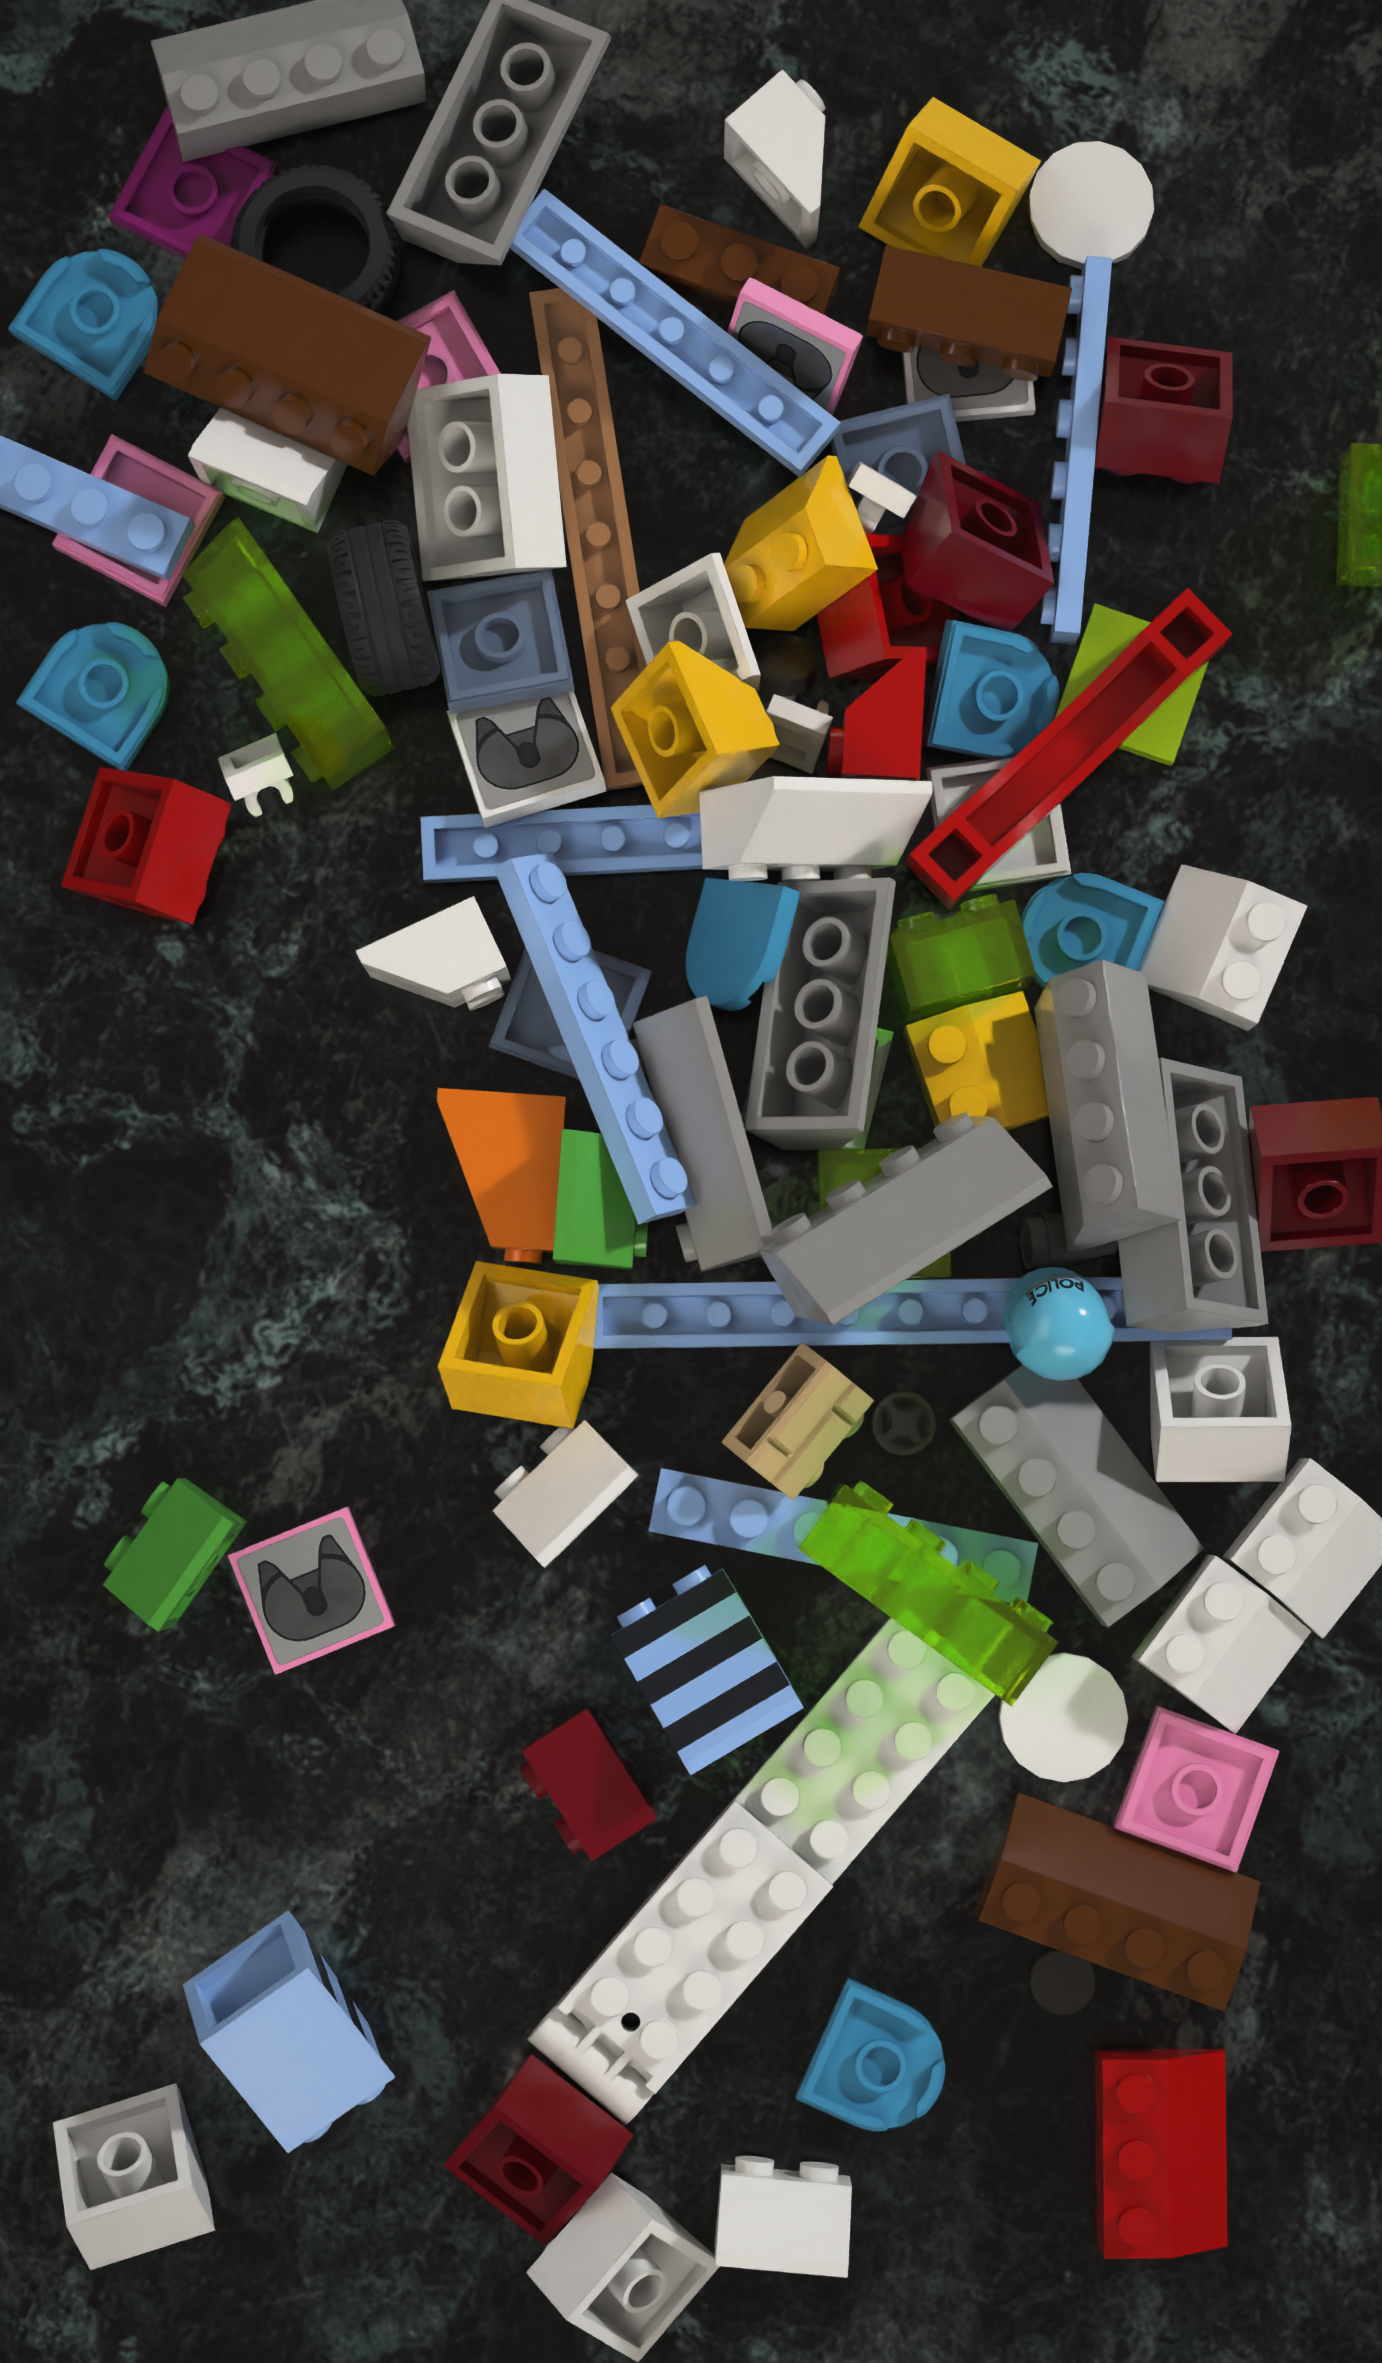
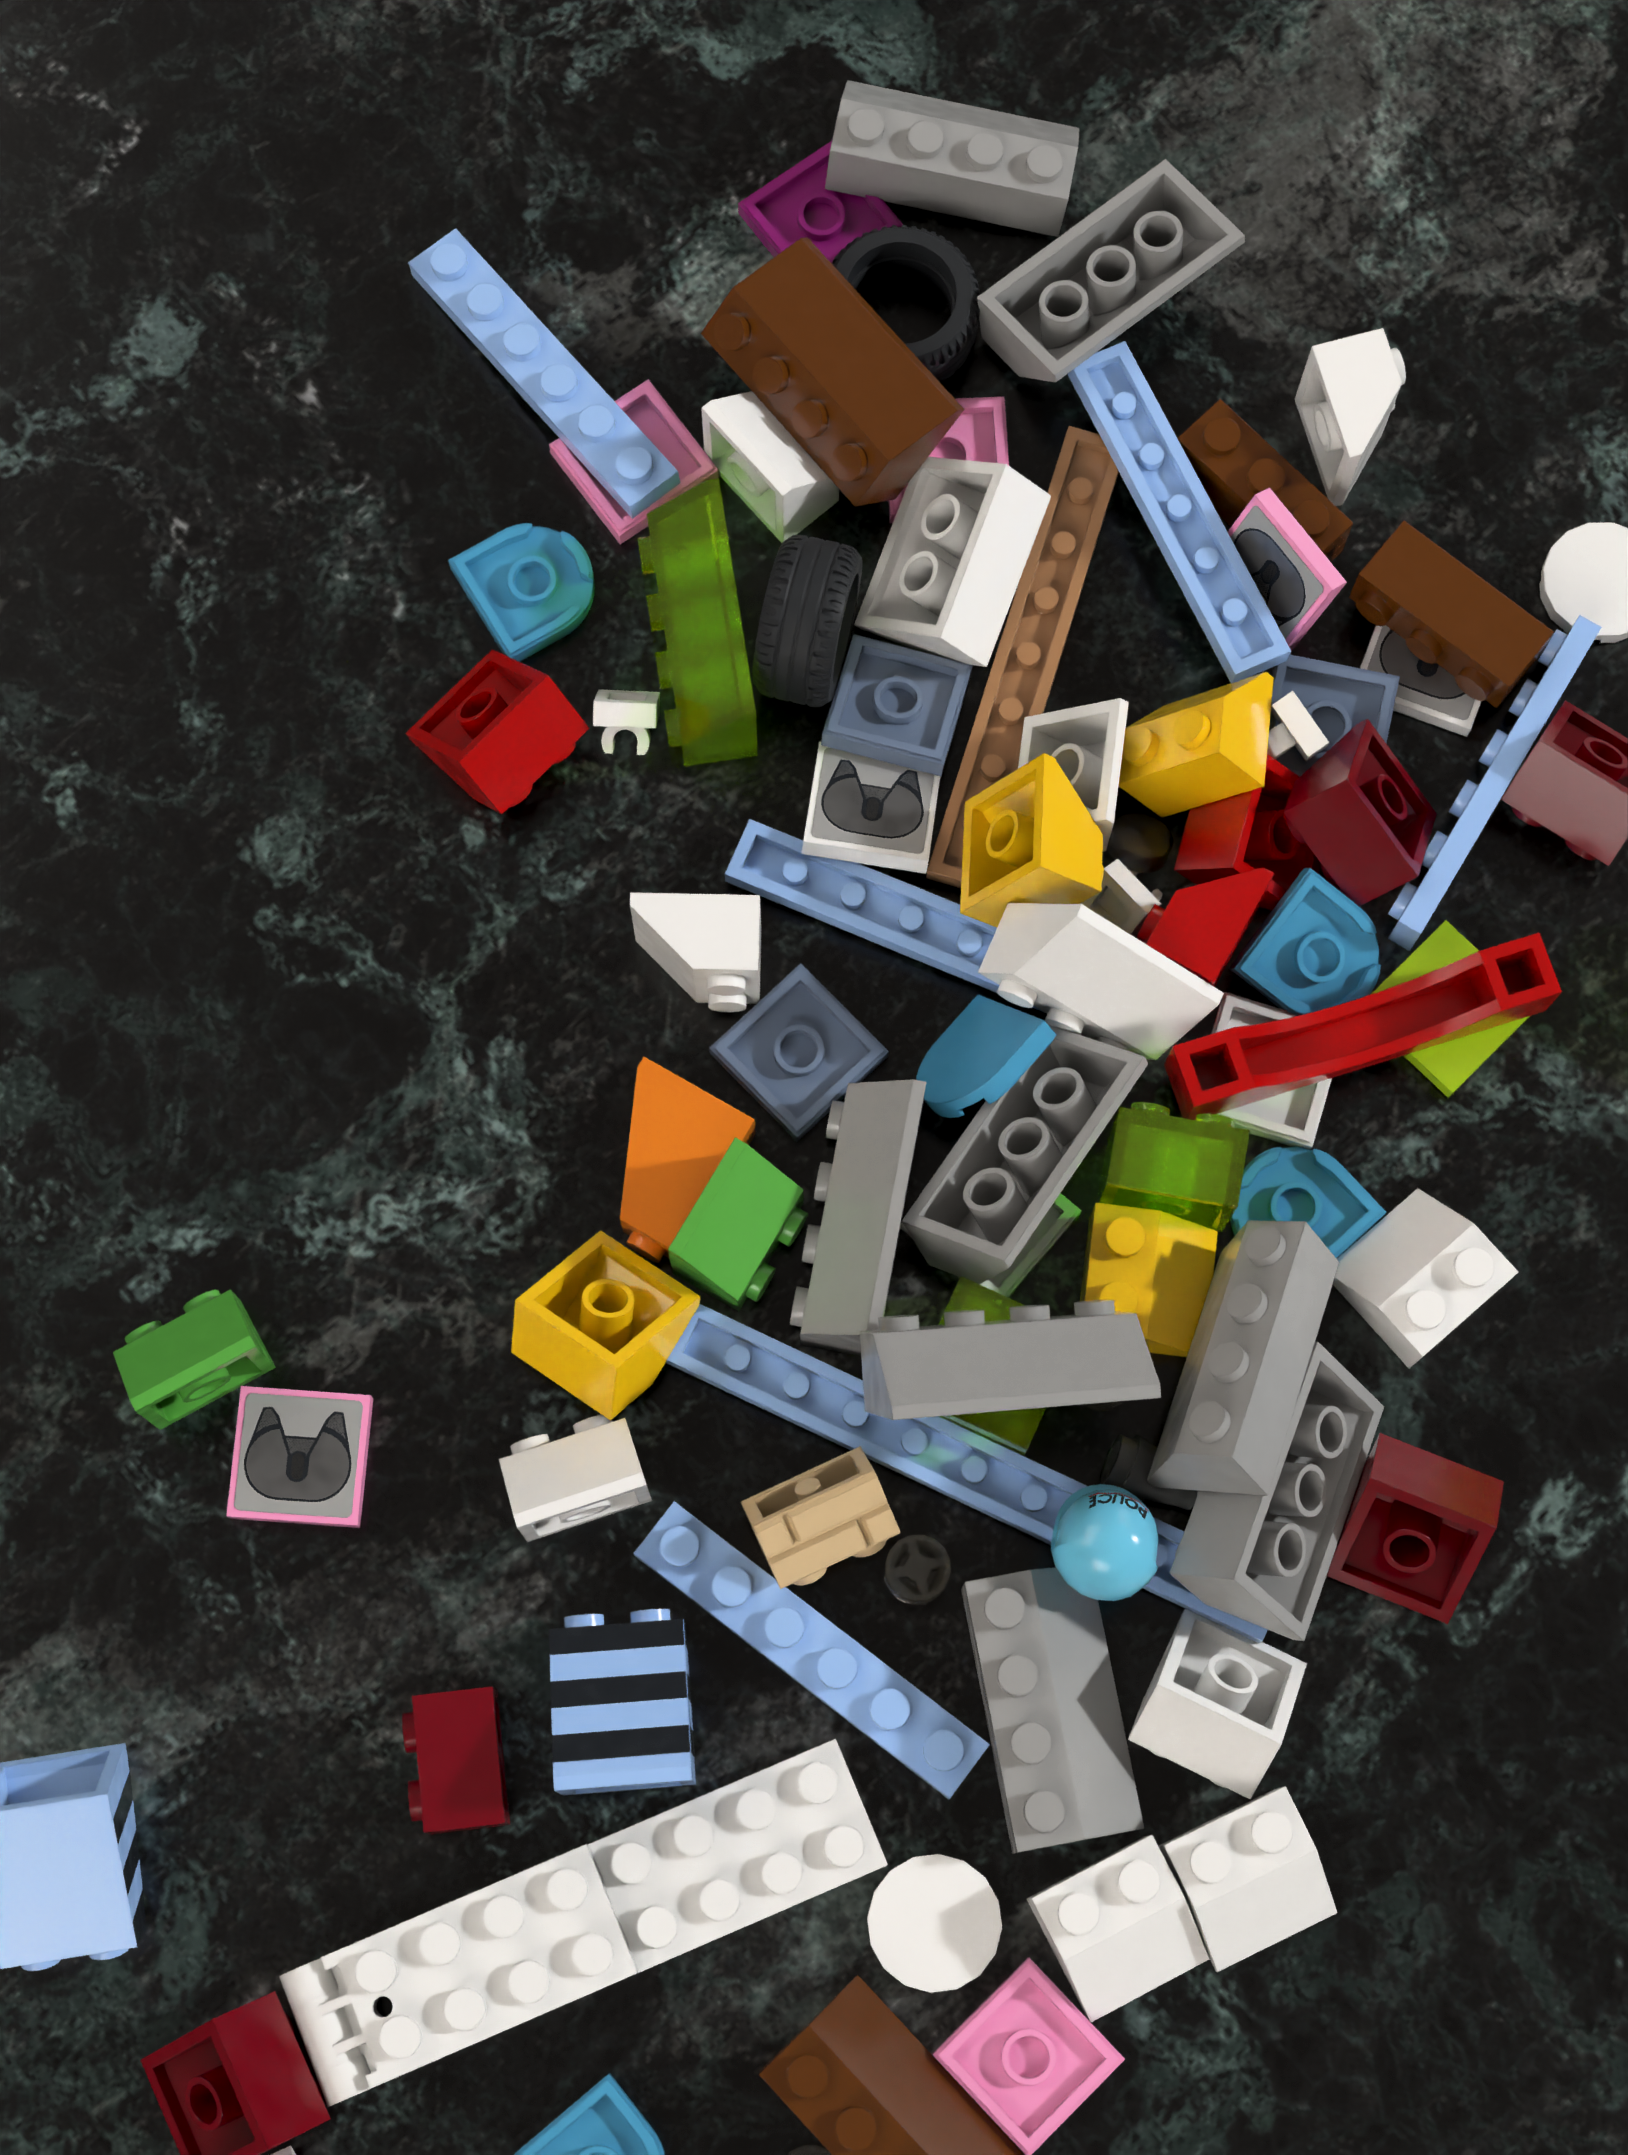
camera: 25 degrees right, 10 degrees down
(92, 317) = (678, 278): dark azure tile -> none
(595, 1037) = (807, 1079): light blue plate -> none
(926, 1593) = (860, 1727): clear neon green brick -> none
(948, 187) = (1484, 504): yellow slope -> none

